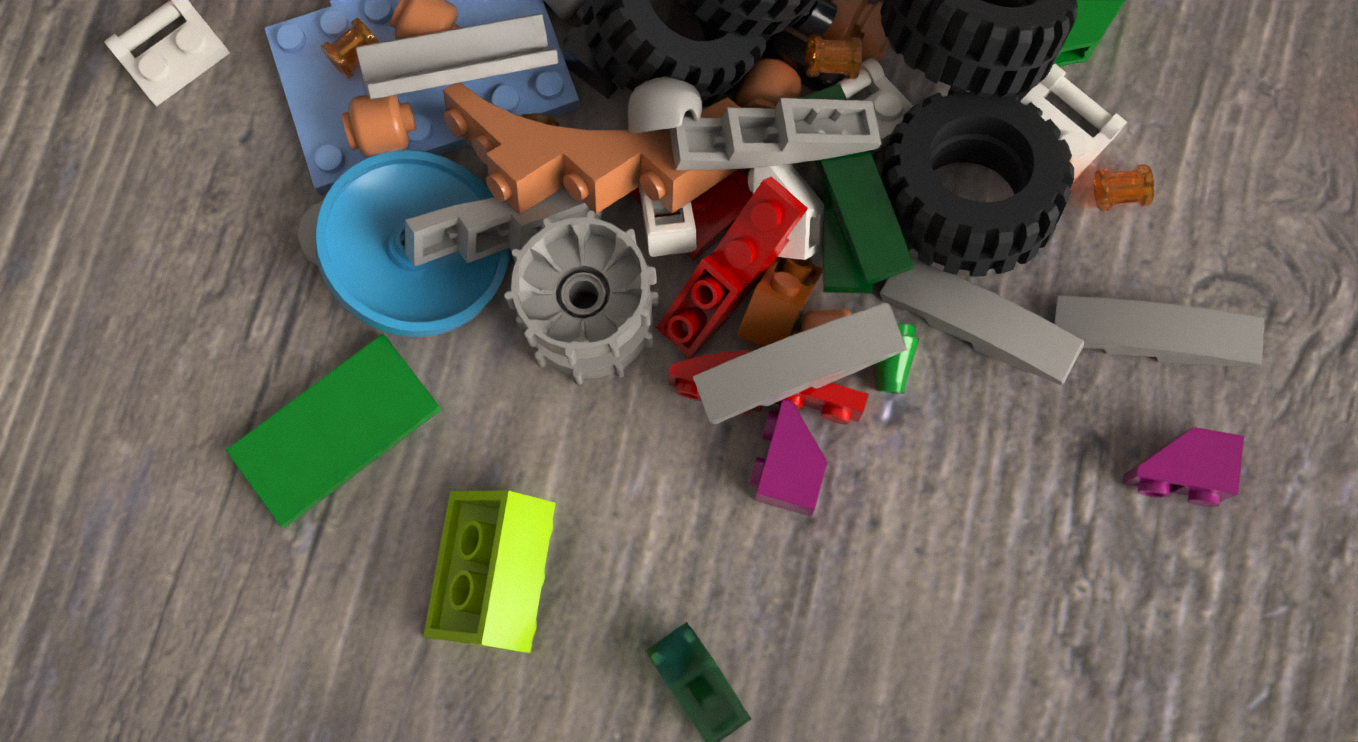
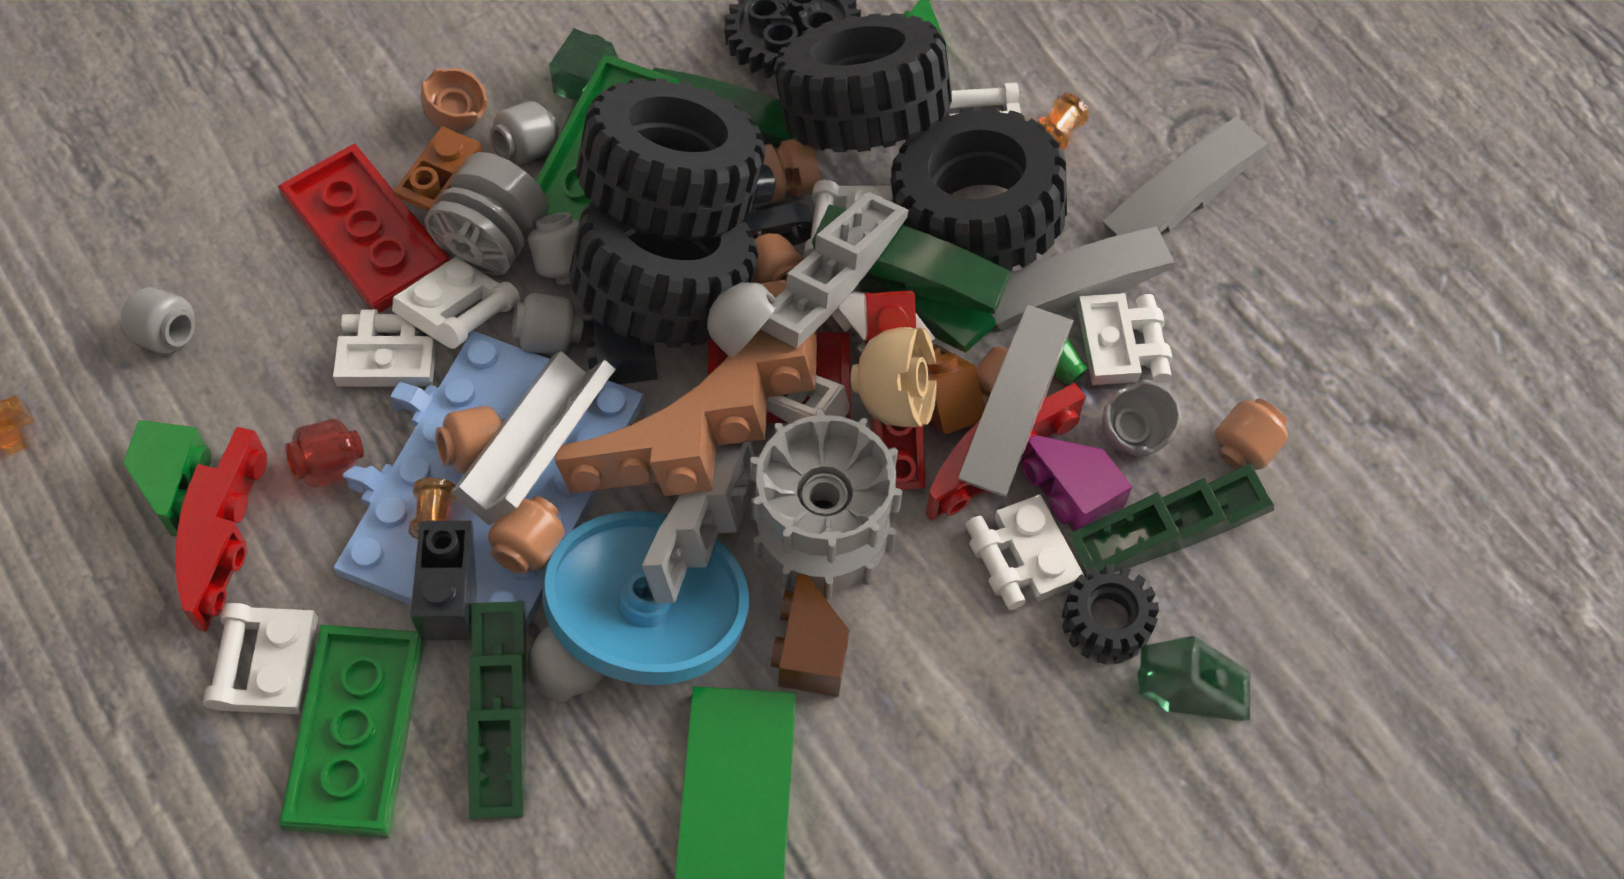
camera: 55 degrees left, 15 degrees down
(169, 148) = (353, 732): none -> green tile
(258, 221) = (497, 710): none -> dark green slope
(300, 104) = (444, 580): none -> black slope
(487, 383) = (814, 641): none -> reddish brown slope
(490, 569) = (969, 762): lime slope -> none
(706, 546) = (1121, 589): none -> black tyre
(713, 479) = (1036, 545): none -> white plate
(719, 264) = (895, 377): none -> tan cylinder
(825, 562) = (1172, 522): none -> dark green slope
(833, 56) = (794, 200): clear orange bush -> none
(890, 469) = (1141, 418): none -> light grey hair
(948, 387) = (1110, 339): none -> white plate
(959, 565) = (1252, 434): none -> nougat head
(1194, 464) = (1302, 240): magenta slope -> none

